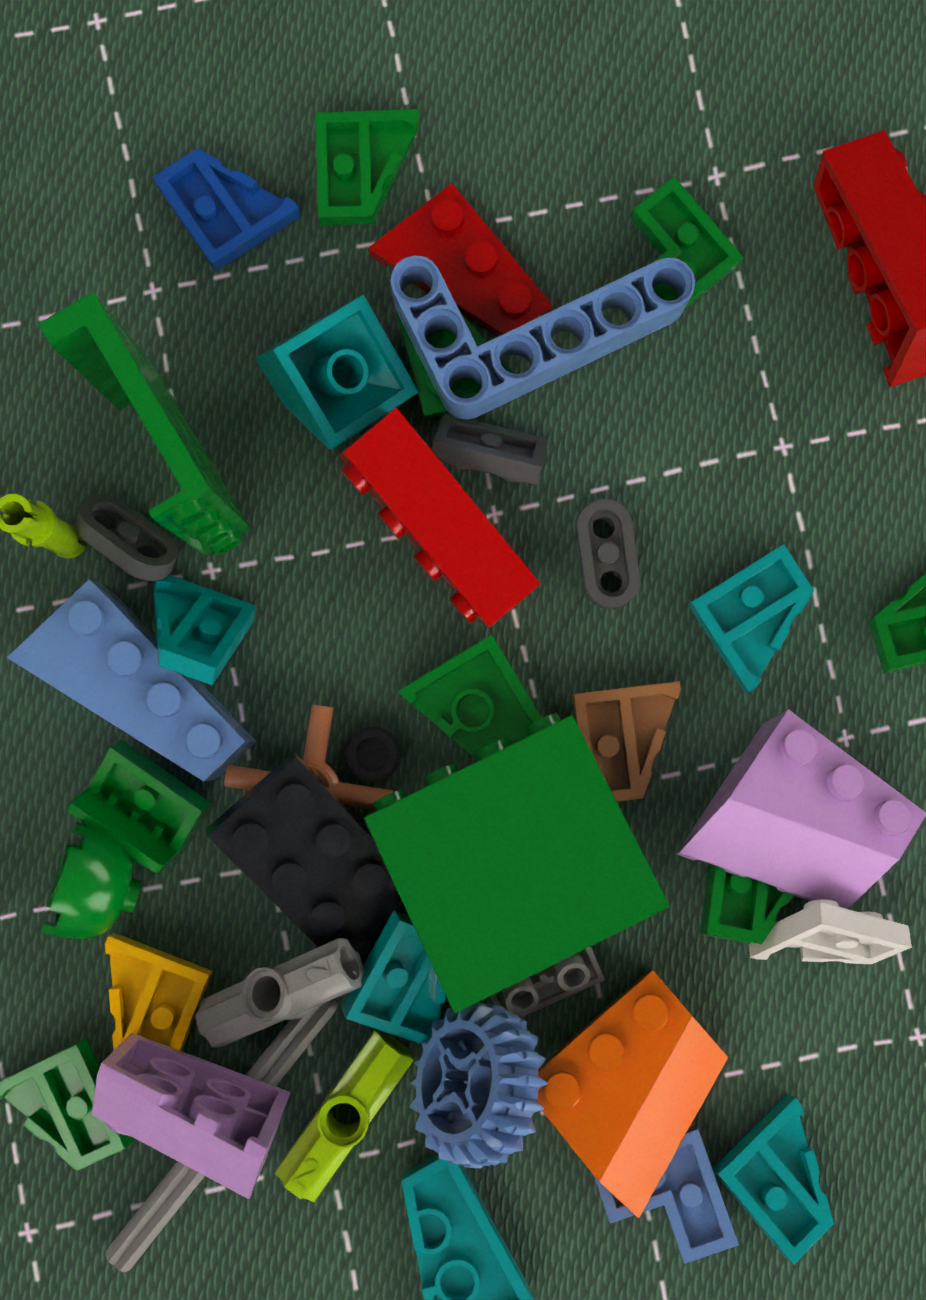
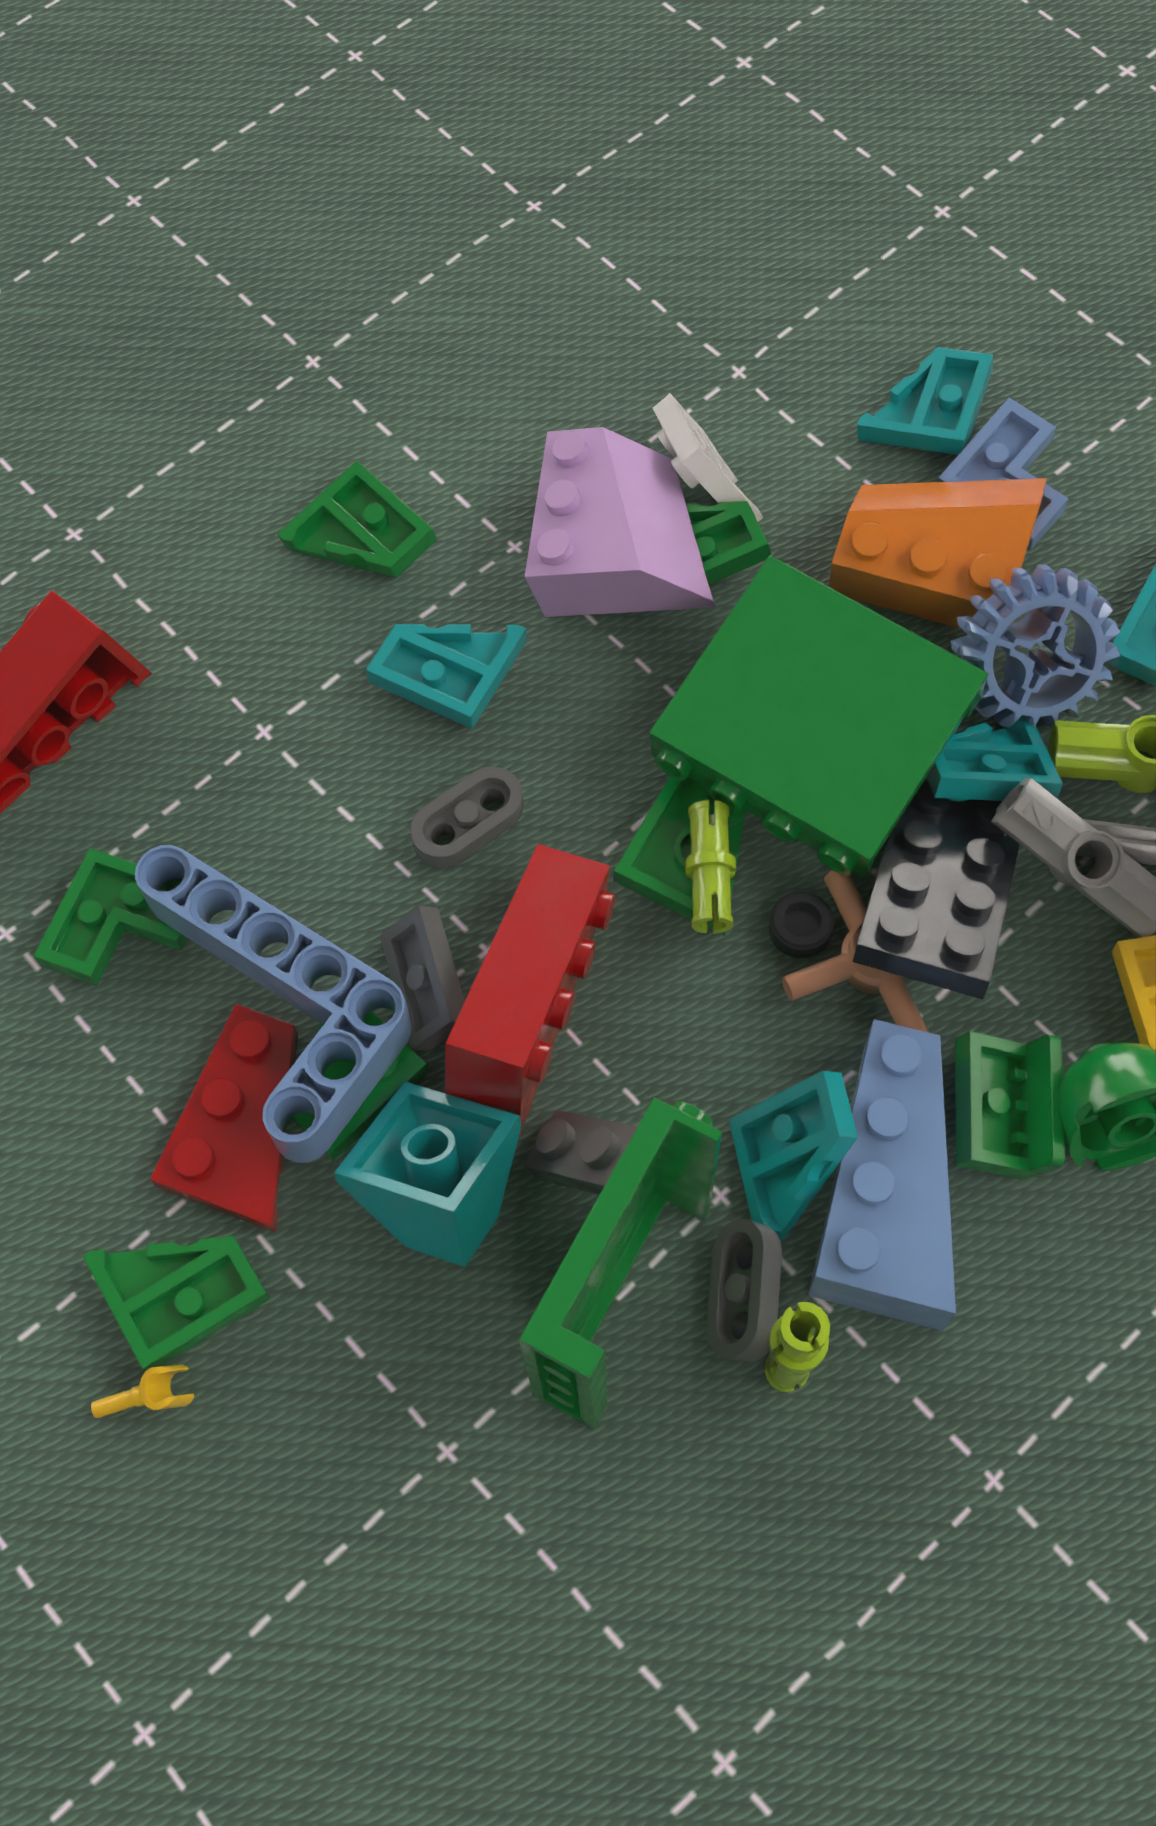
camera: 120 degrees left, 20 degrees down
(222, 206) = (308, 1418): blue wing -> none
(276, 483) = (578, 1151): none -> dark grey plate
(298, 118) = (152, 1392): none -> yellow hand
(444, 703) = (710, 867): none -> lime pin
(626, 732) = (622, 713): medium nougat wing -> none

